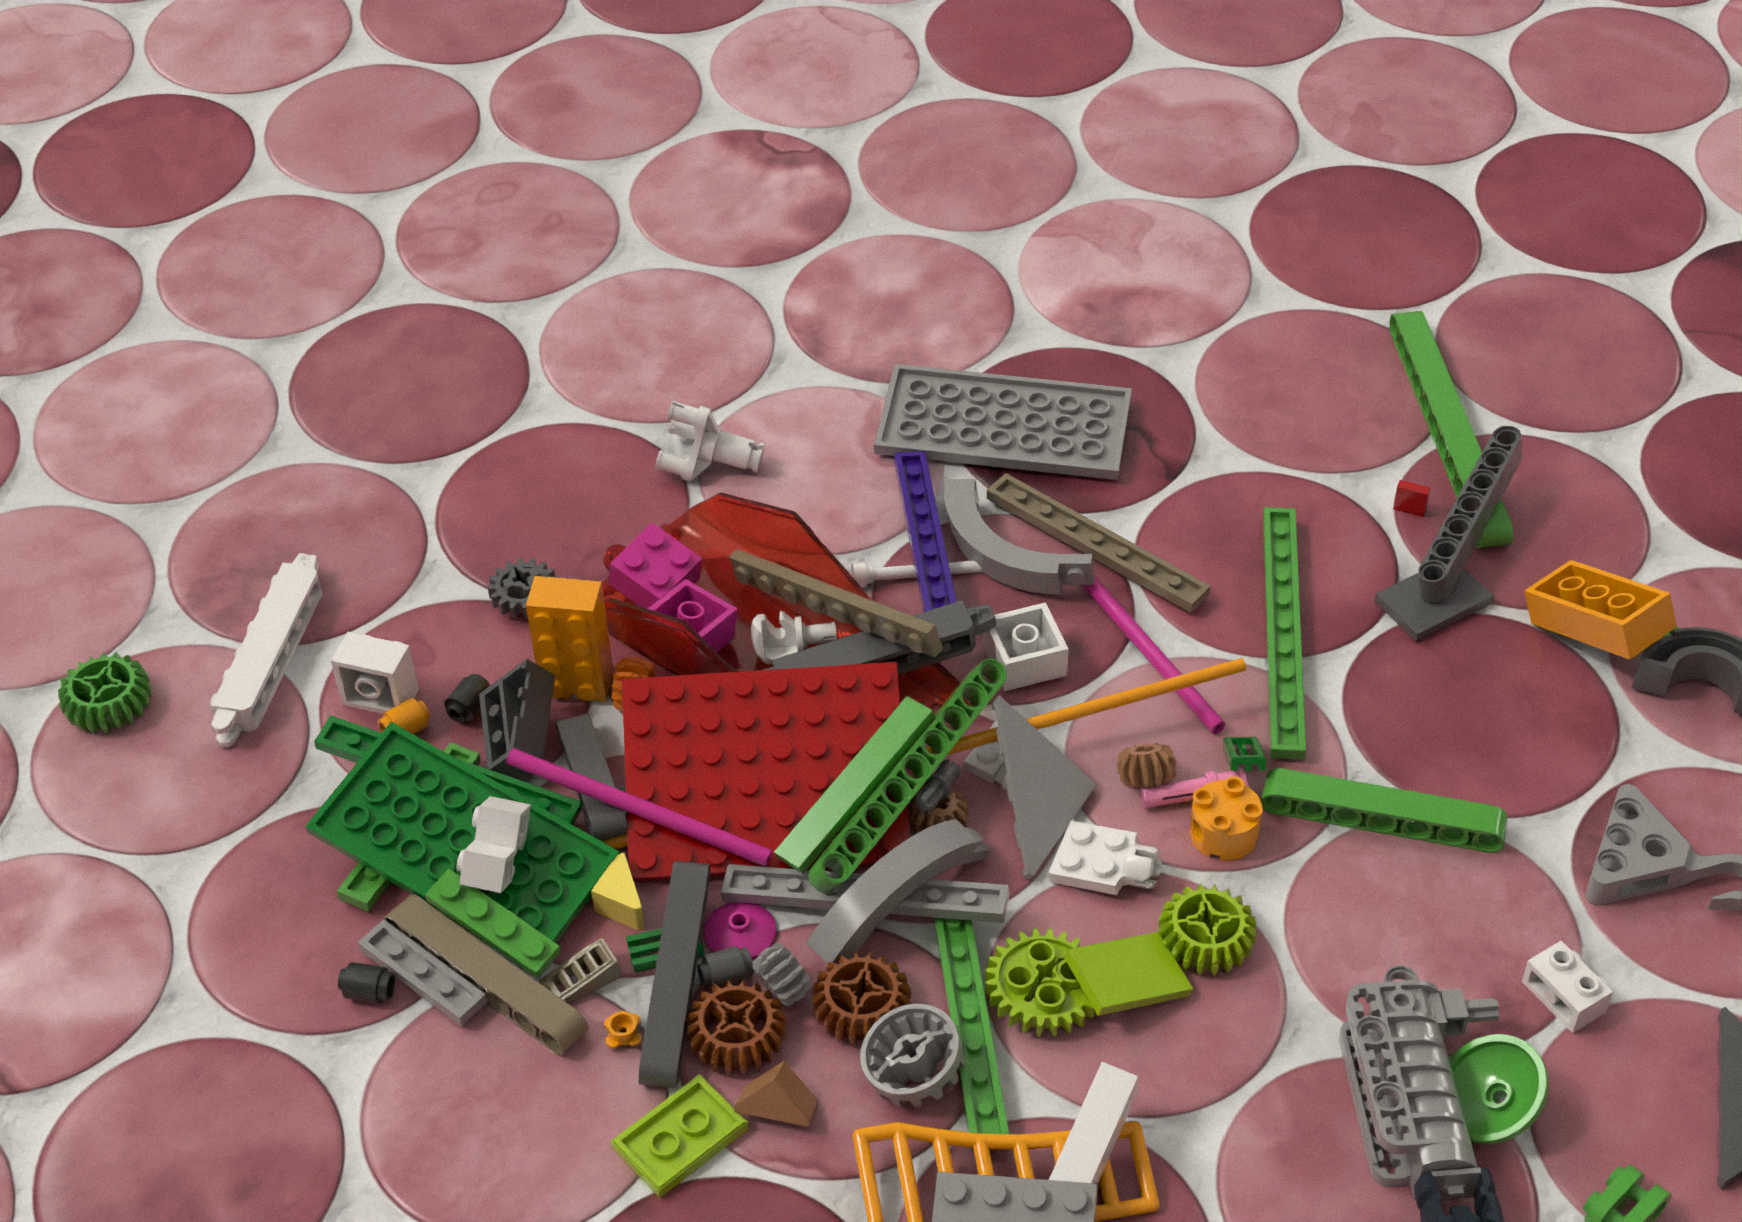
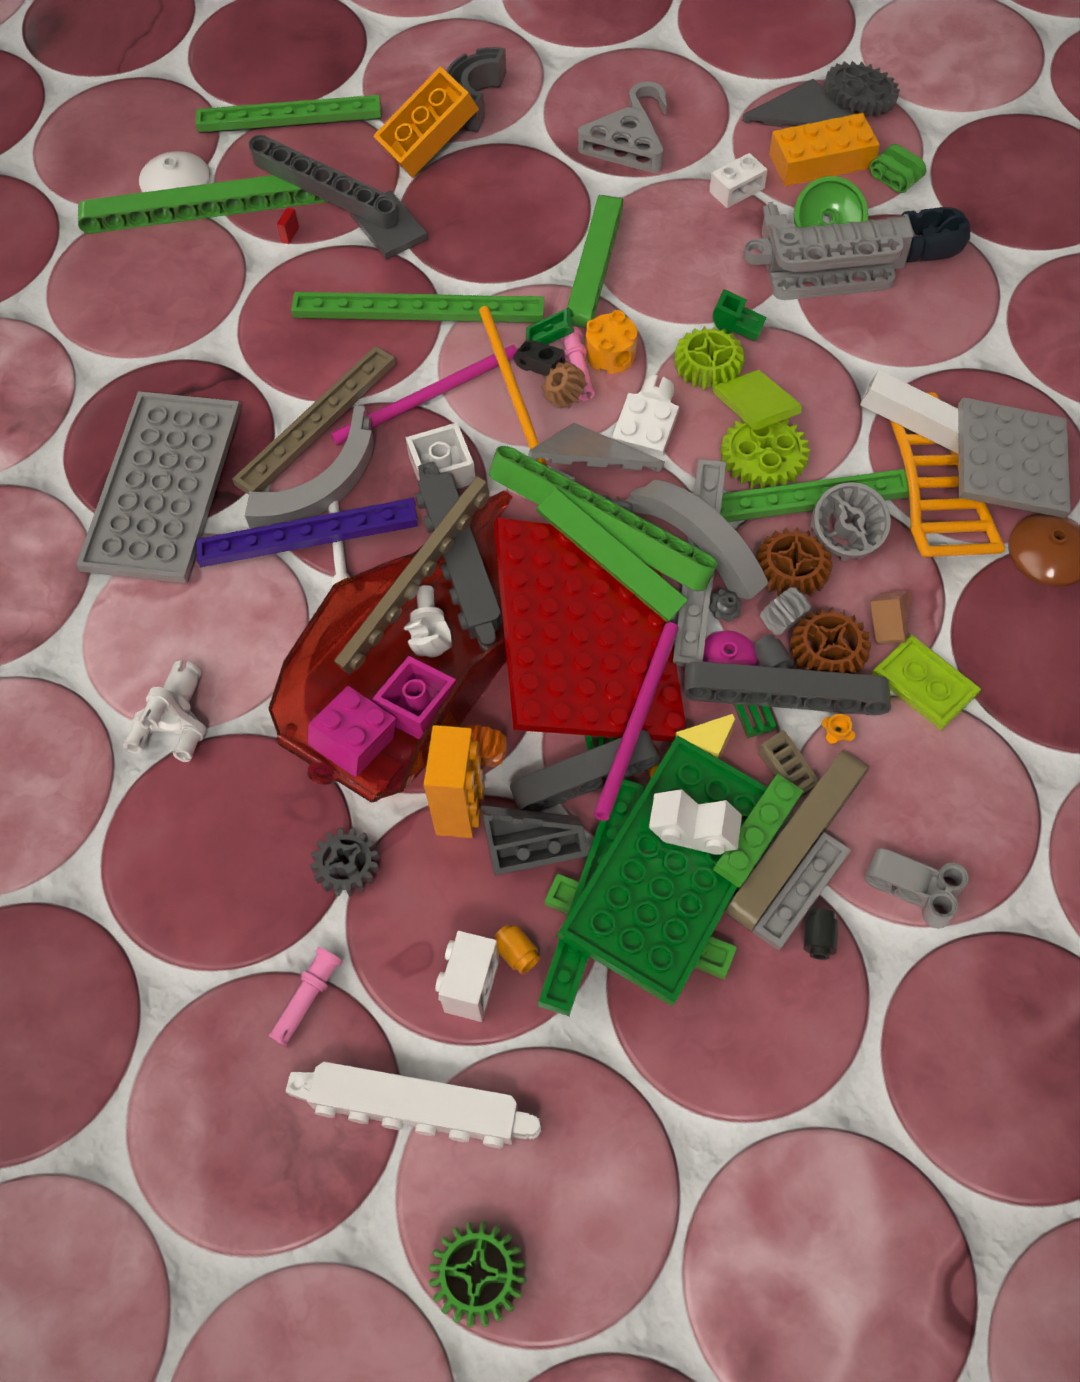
camera: 90 degrees left, 15 degrees up
(403, 571) = (313, 982): none -> bright pink pin
(405, 1085) = (918, 884): none -> light grey piece
(464, 700) = (488, 894): pearl dark grey brick -> none
(802, 922) = (725, 605): none -> dark grey plant
(1196, 748) = (538, 357): none -> pearl dark grey leg
(1281, 962) = (733, 316): none -> green brick
(1497, 396) = (173, 171): none -> white dish
(1627, 493) = (288, 113): none -> bright green plate
(1653, 1104) = (823, 149): none -> light orange brick

